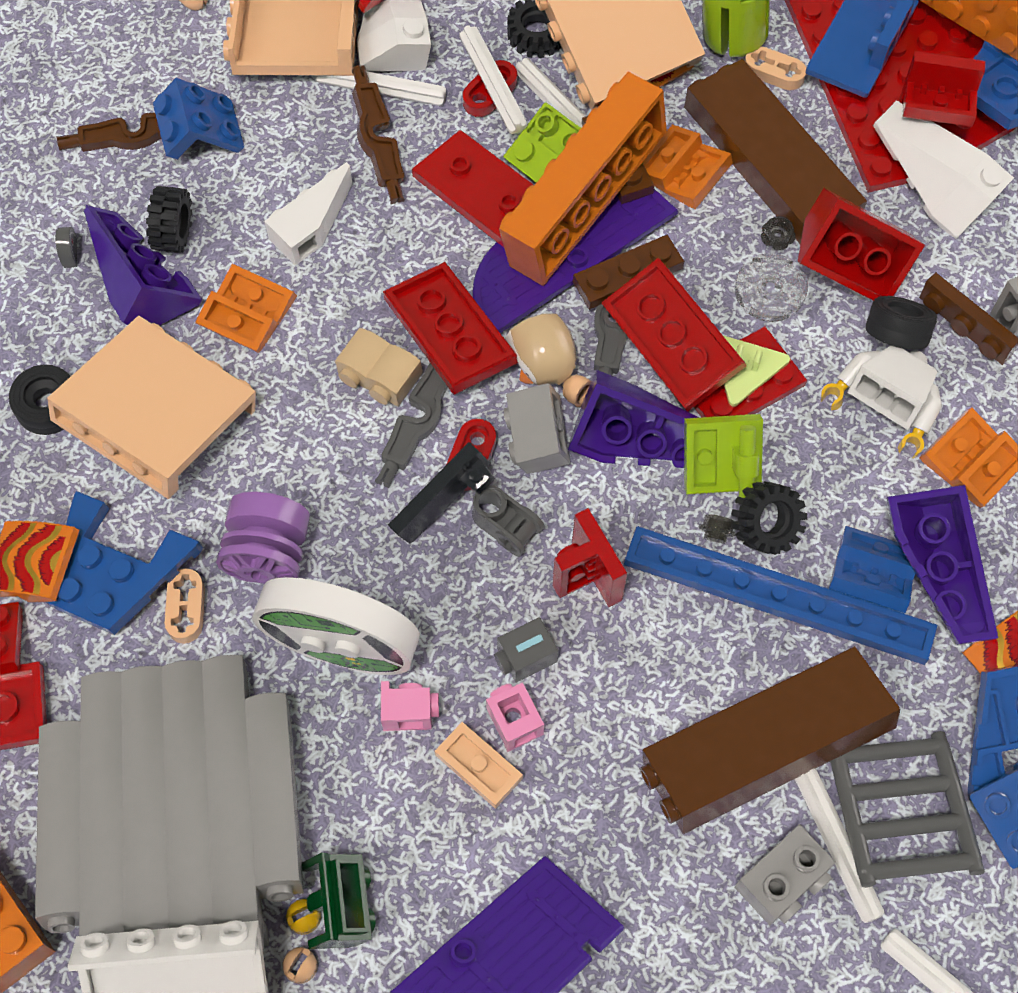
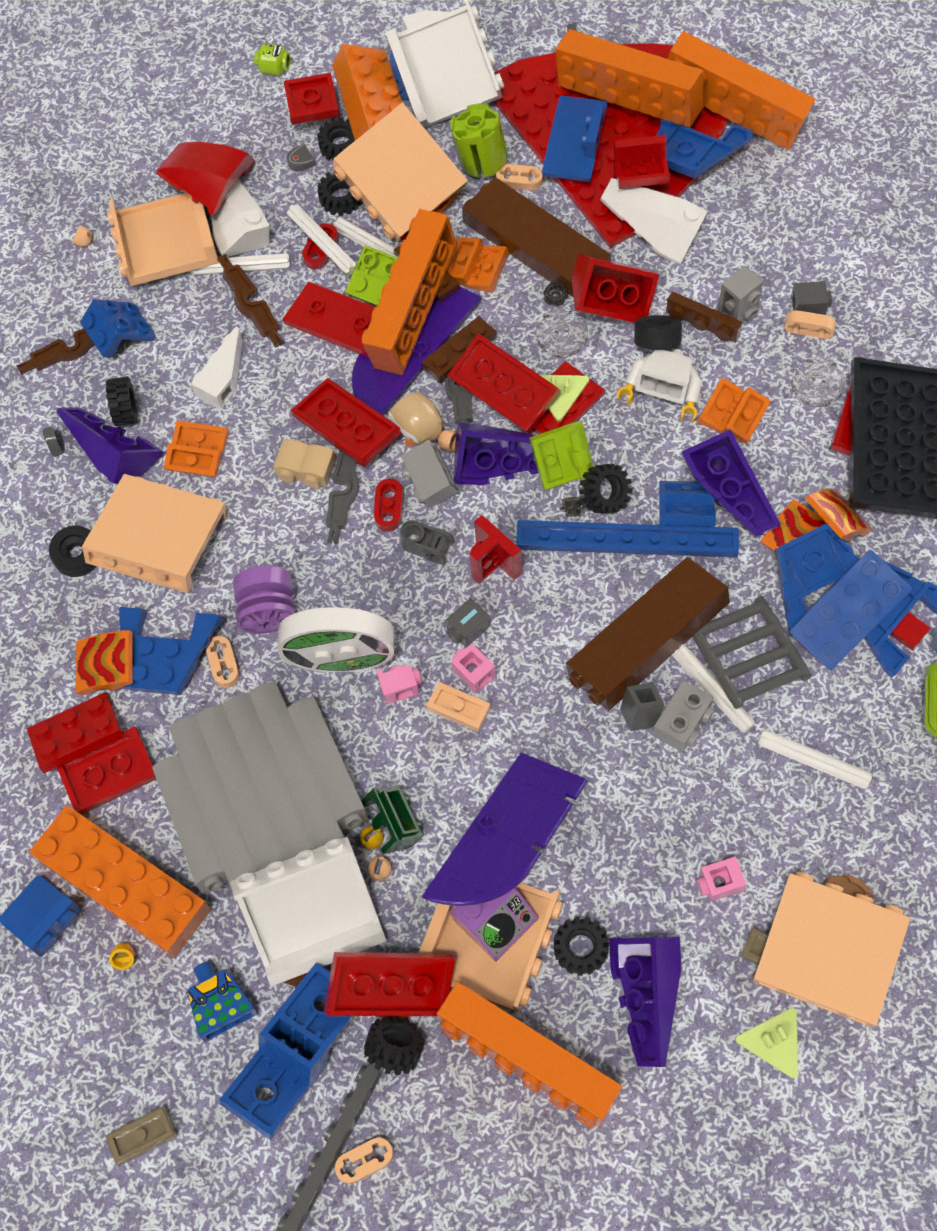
camera: 10 degrees left, 0 degrees up
(463, 471) = (389, 514): black hinge -> none
(731, 844) = (641, 706): none -> dark grey brick

